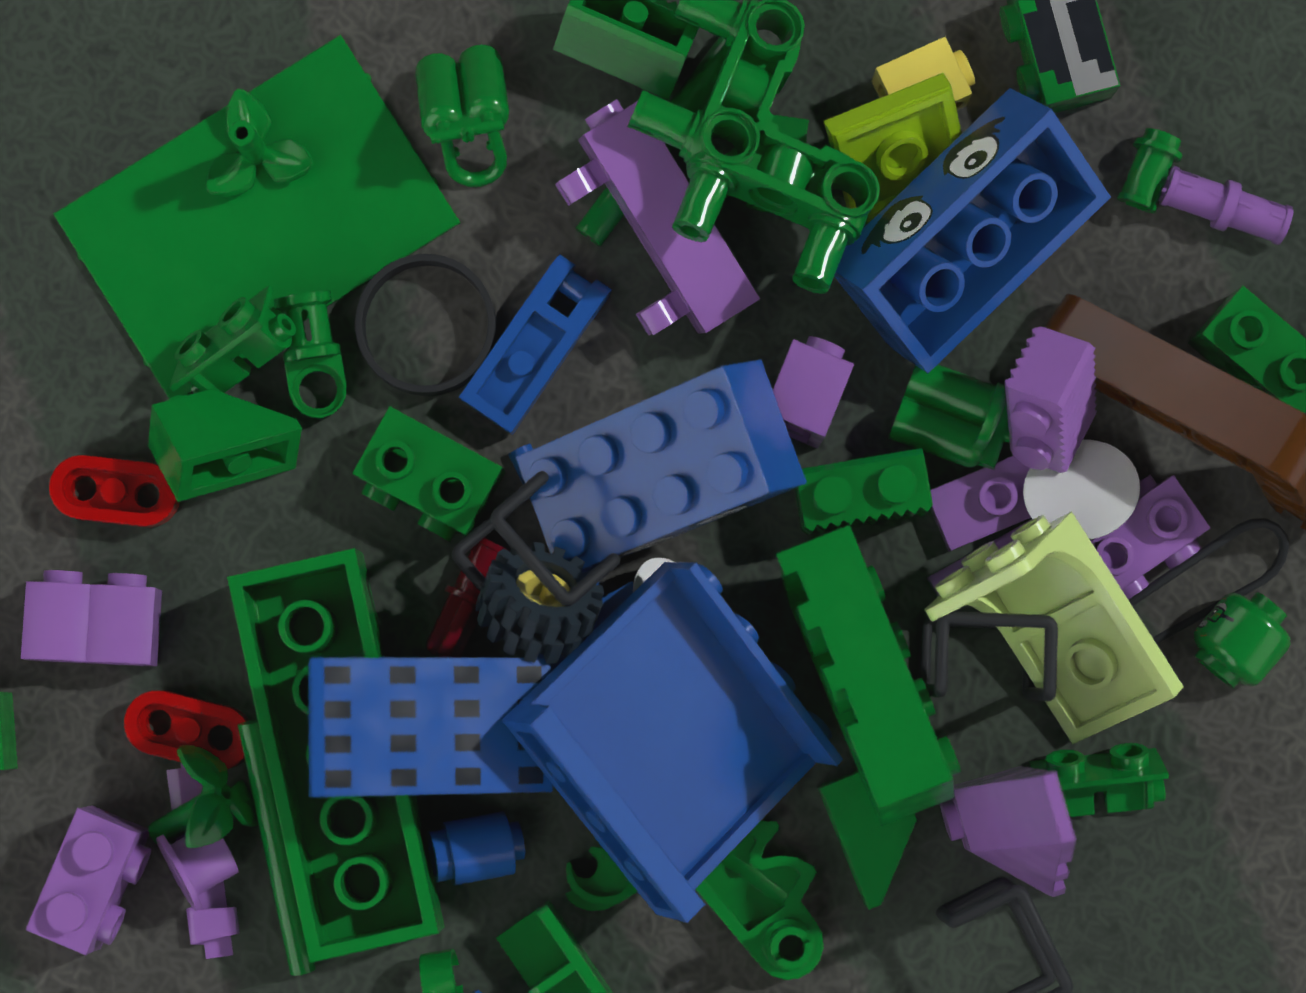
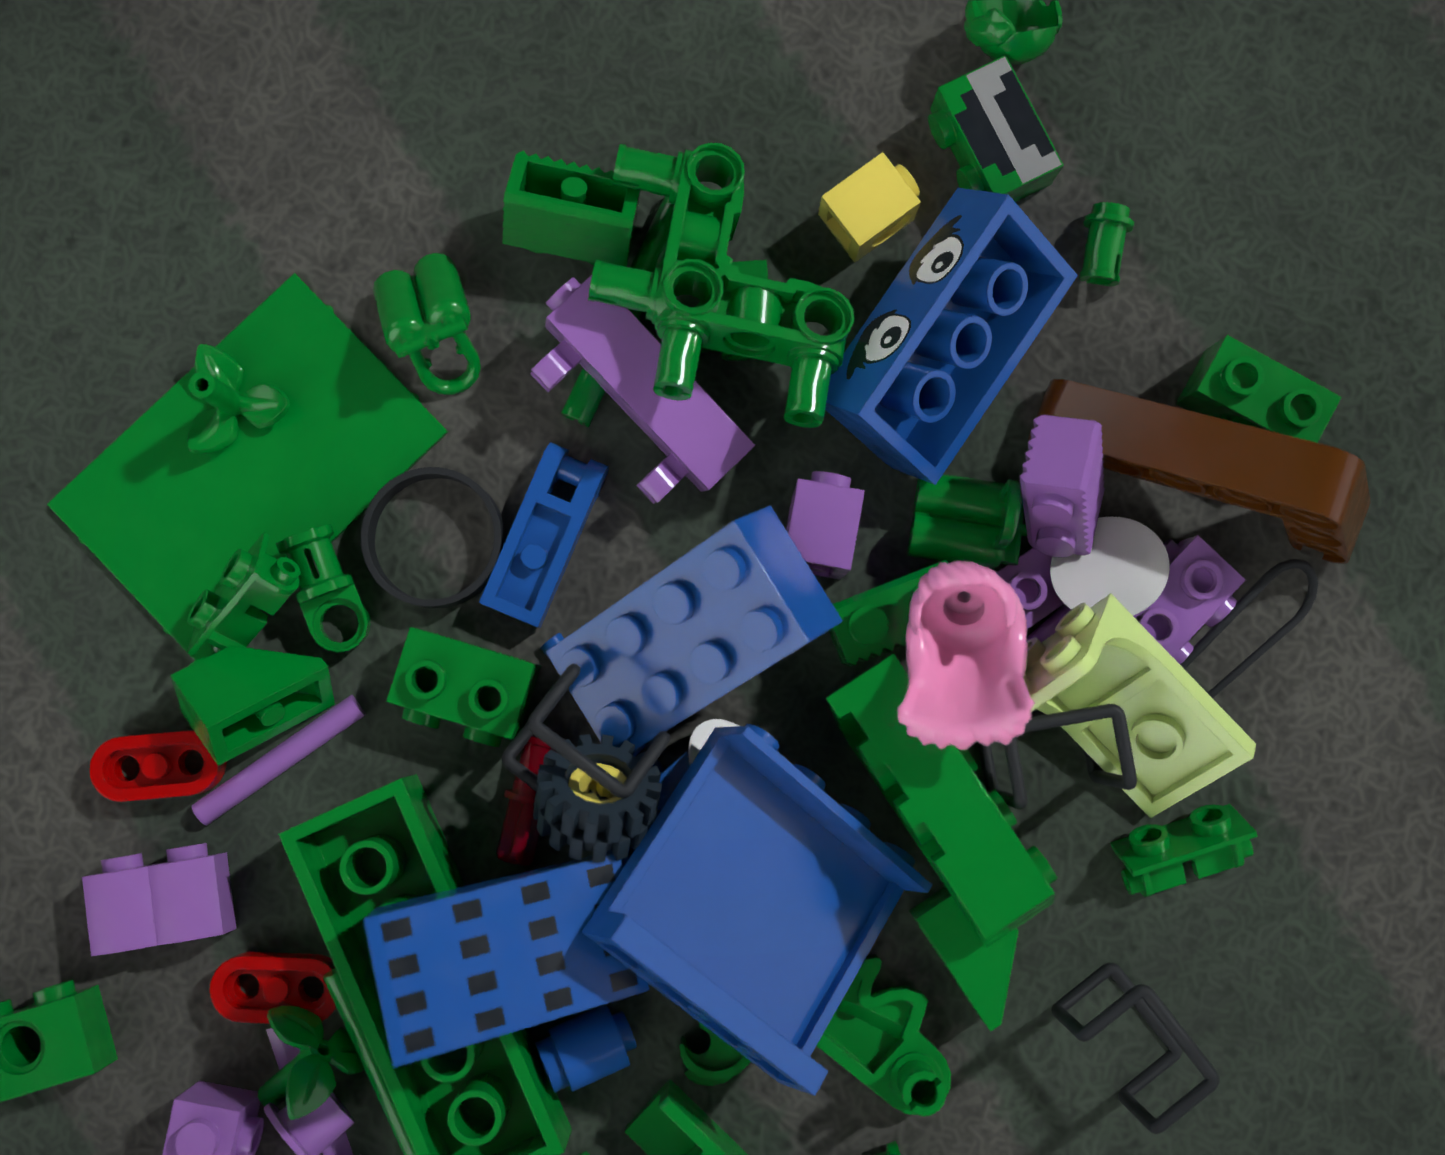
camera: 15 degrees left, 0 degrees up
(231, 511) = (278, 760): none -> medium lavender bar
(897, 135) = (858, 254): lime tile -> none
(914, 540) = (965, 659): none -> bright pink piece
(1015, 824) = (1125, 916): medium lavender wedge -> none
(1226, 205) = (1187, 263): medium lavender pin -> none
(1242, 639) = (1294, 681): green head -> none

